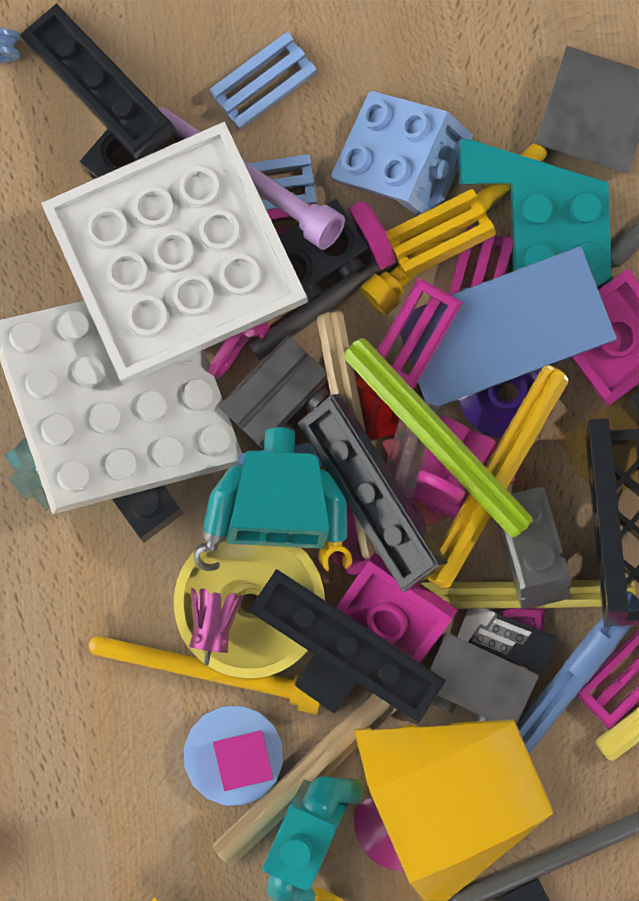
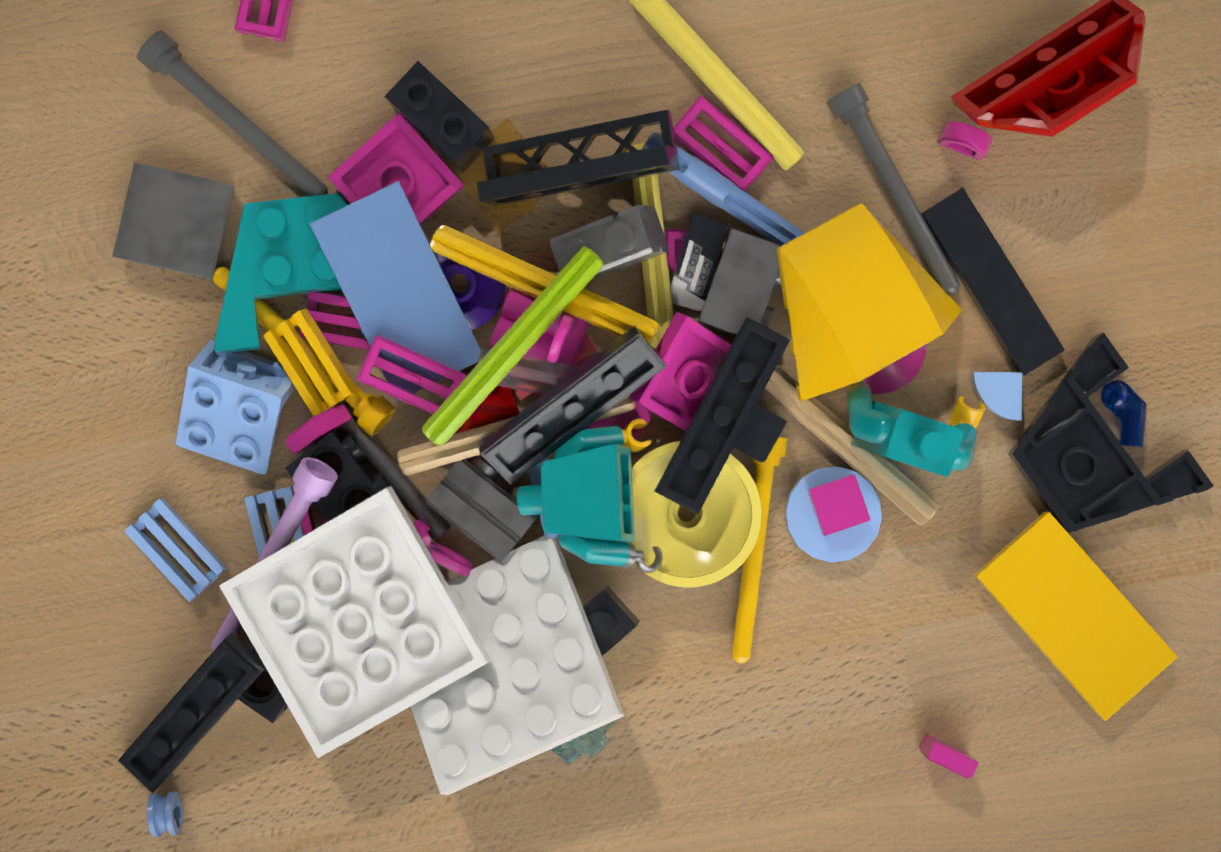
camera: 90 degrees left, 5 degrees up
(212, 623) = (718, 548): flat silver piece -> none

